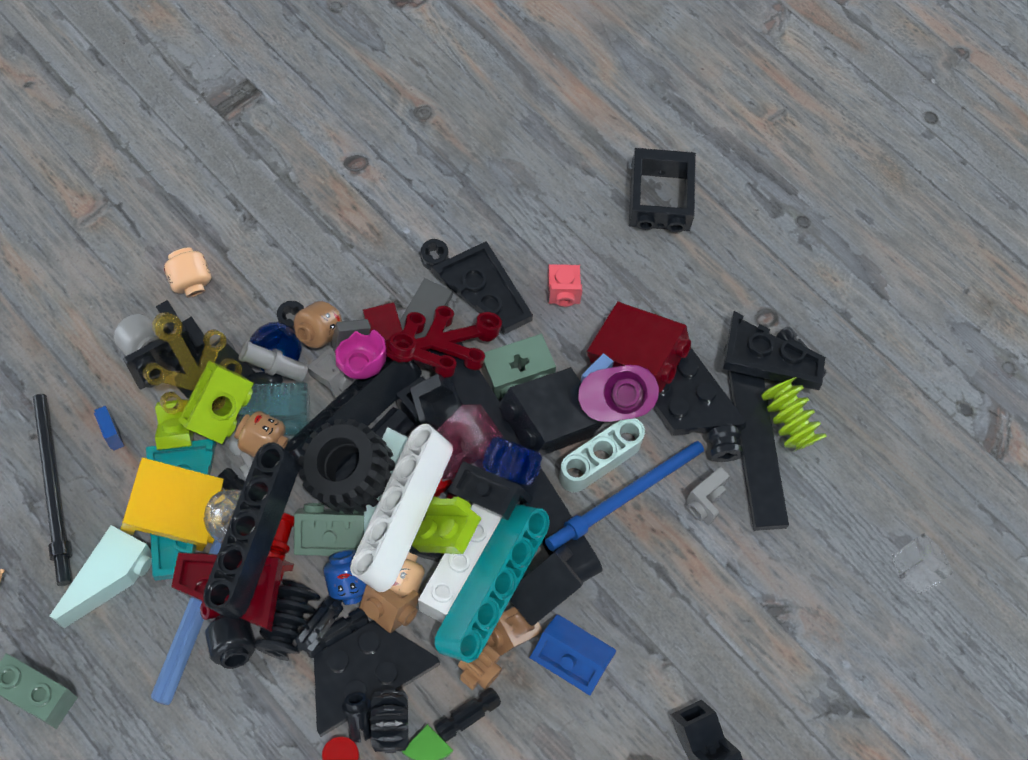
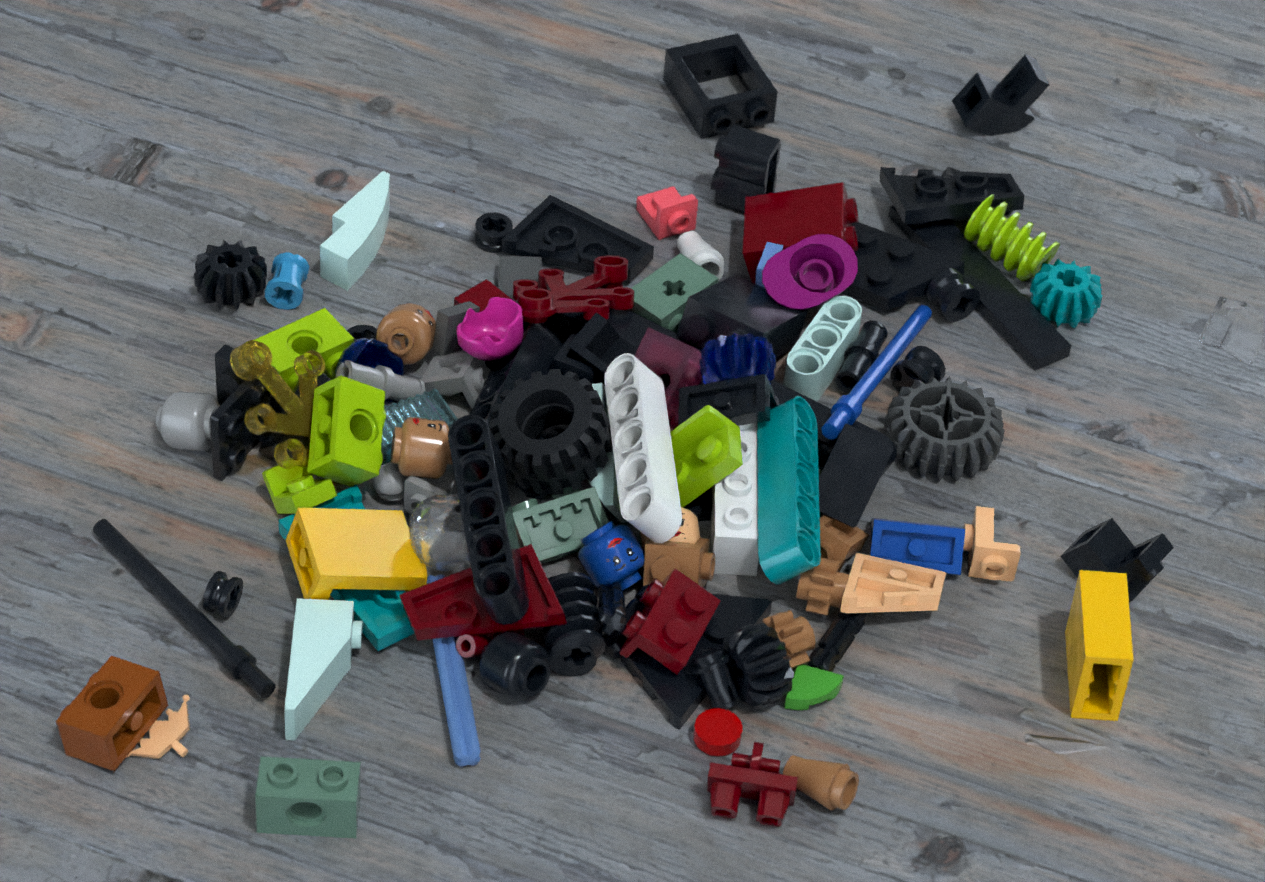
camera: 25 degrees left, 20 degrees down
(78, 491) = (222, 594): none -> black bush
(108, 428) = (218, 520): blue tile -> none
(187, 272) = (201, 335): light nougat head -> none
(228, 303) = (313, 332): none -> lime brick
(235, 223) = (230, 274): none -> black gear
(269, 243) = (288, 275): none -> dark azure bush
(340, 220) = (356, 234): none -> light aqua slope
(348, 657) = (671, 620): none -> dark red bracket
(426, 704) = (795, 633): none -> medium nougat gear
(528, 688) = (891, 586): none -> light nougat wing
(561, 336) = (700, 252): none -> white cone
(616, 674) = (985, 557): none -> light nougat bracket
(628, 470) = (861, 355): none -> black pin
(630, 277) = (745, 167): none -> black brick
(659, 504) = (918, 364): none -> black wheel
(660, 570) = (970, 423): none -> dark grey gear
(705, 494) = (964, 350): light grey bracket -> none
(818, 467) = (1066, 293): none -> teal gear
(860, 286) = (1004, 105): none -> black brick

